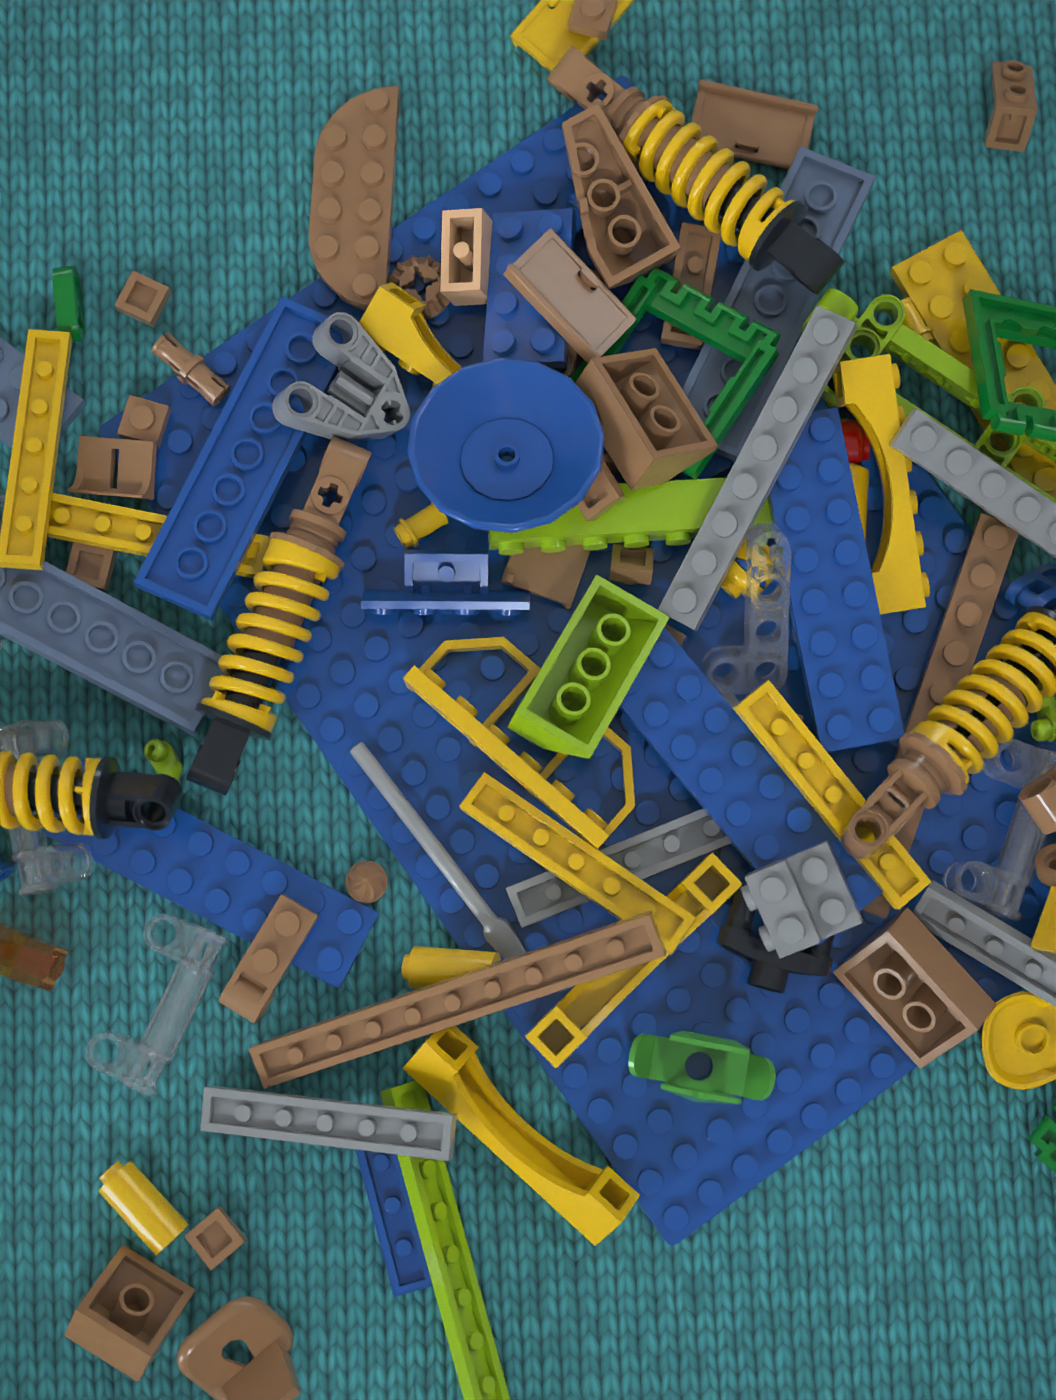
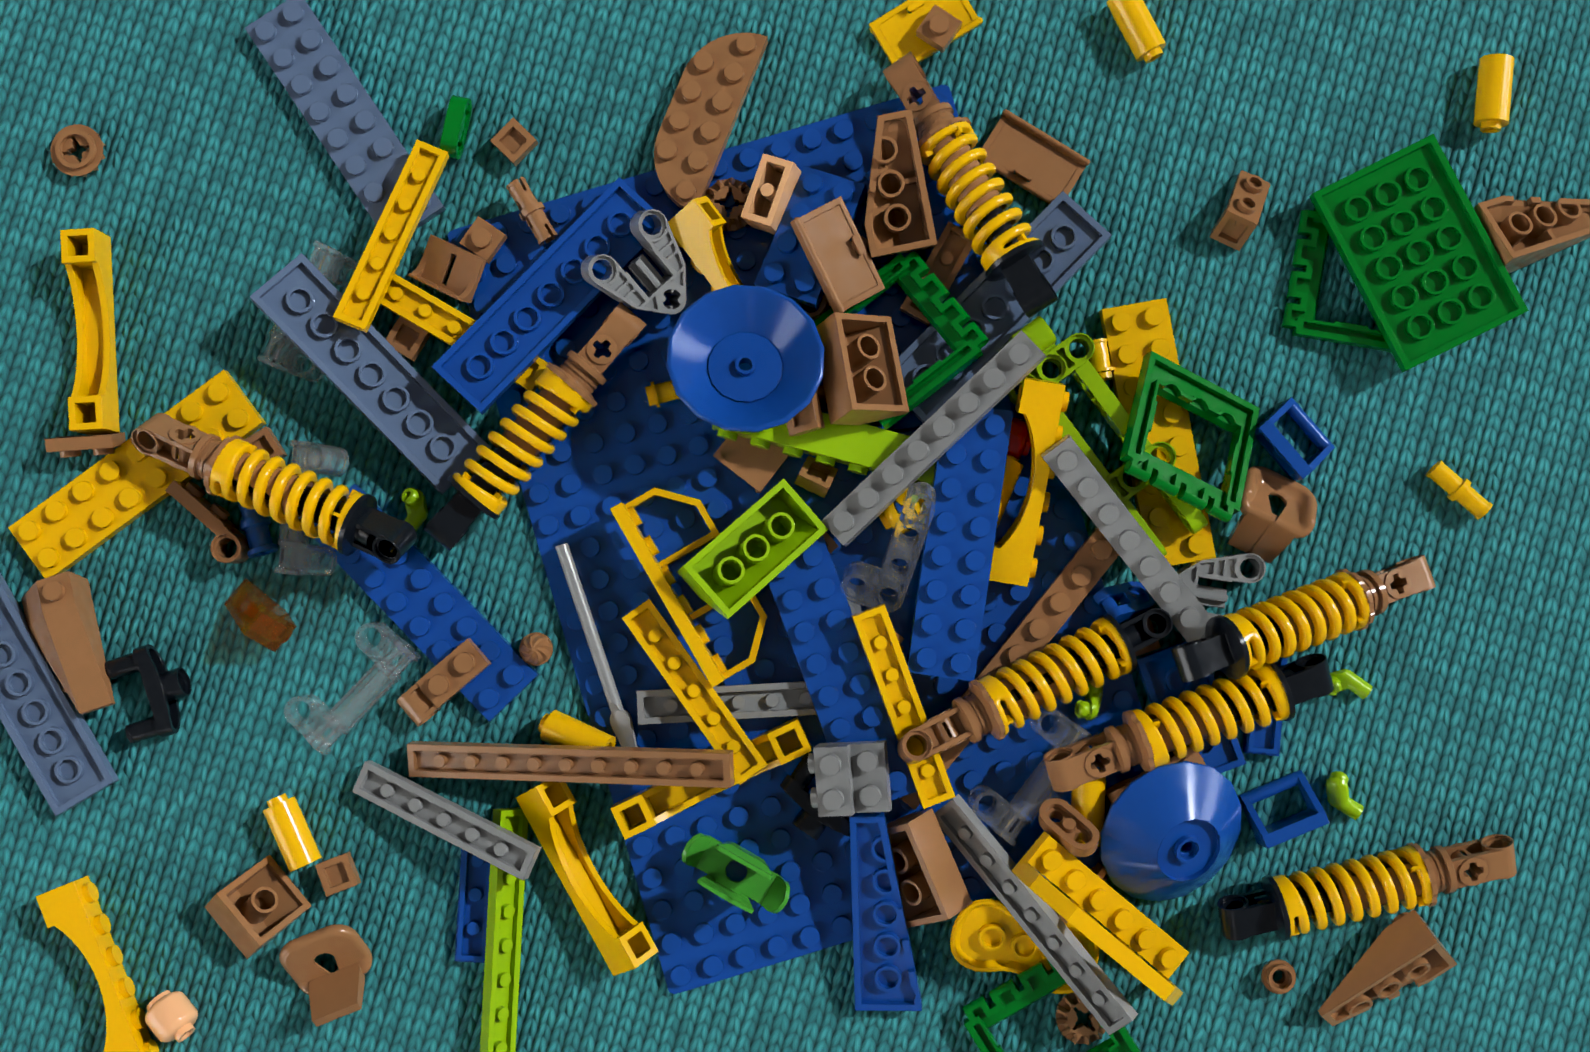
camera: 20 degrees right, 5 degrees up
(446, 582) = (670, 443): blue bracket -> none
(903, 1091) = (881, 942): none -> blue wing

